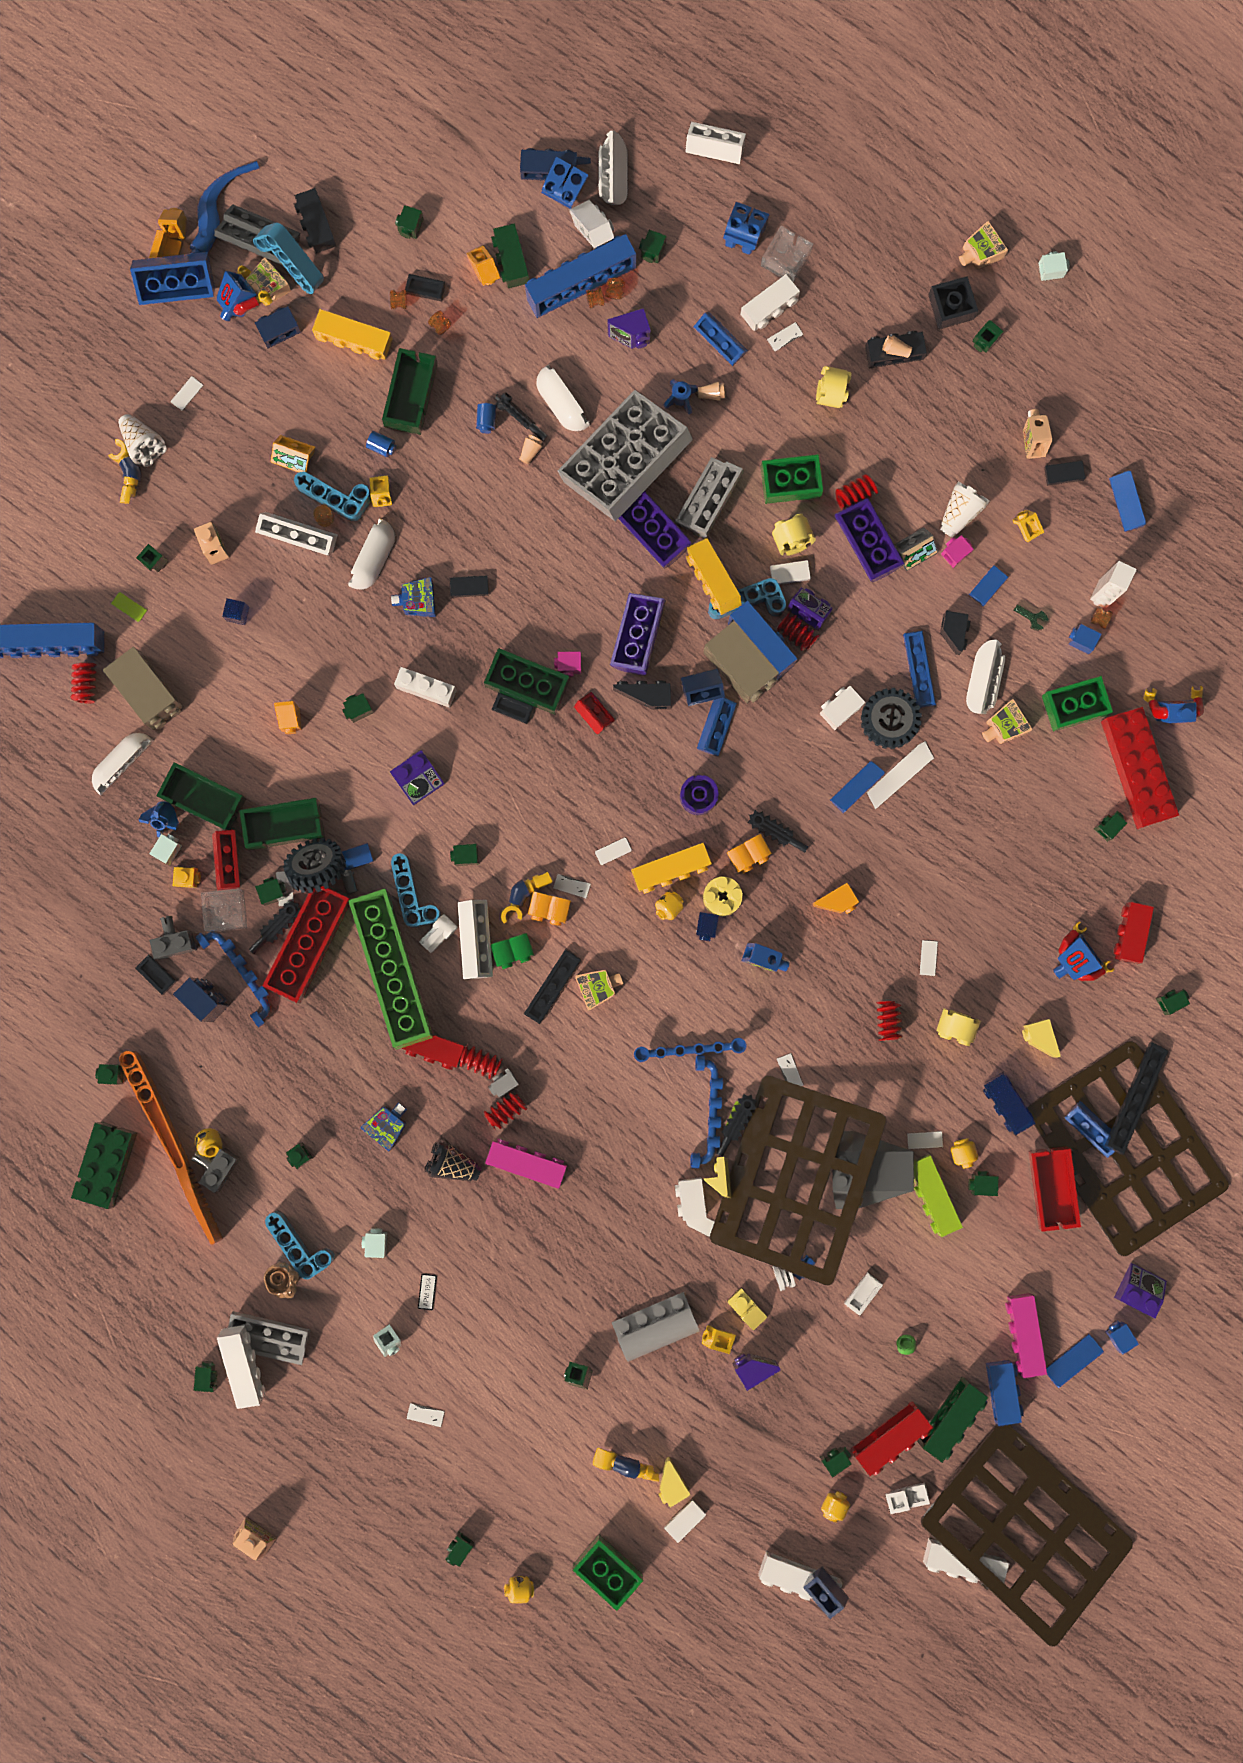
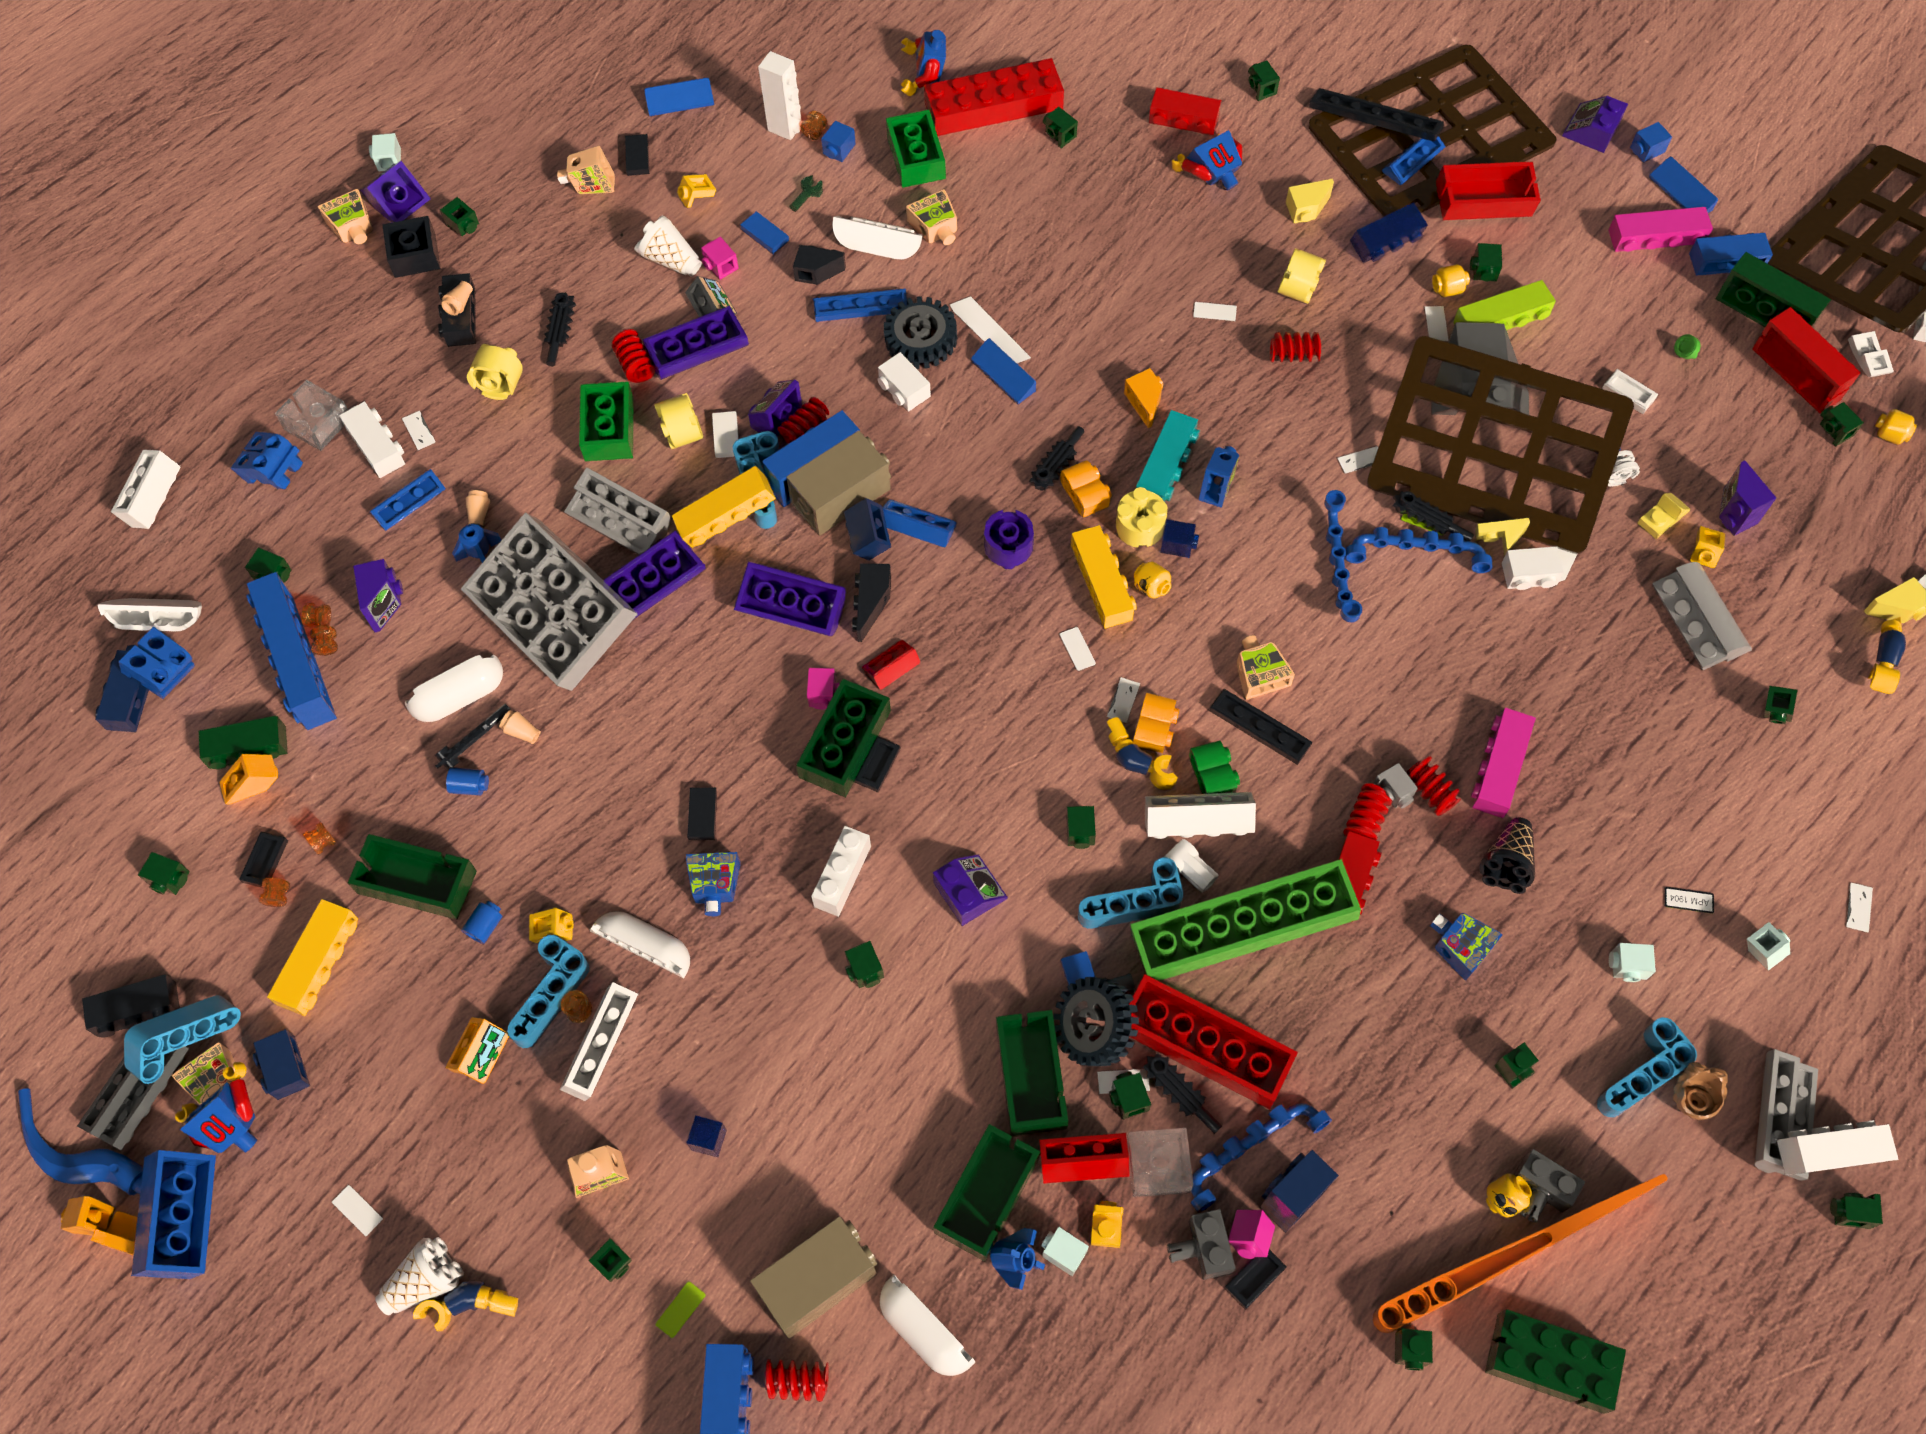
camera: 85 degrees left, 20 degrees down
(177, 969) = (1251, 1233): none -> dark pink brick
(288, 716) = (873, 1059): light orange slope -> none
(592, 223) = (222, 631): white brick -> none
(778, 916) = (1169, 454): none -> teal brick
(886, 430) = (559, 325): none -> black piece
(1010, 280) = (395, 193): none -> dark purple slope

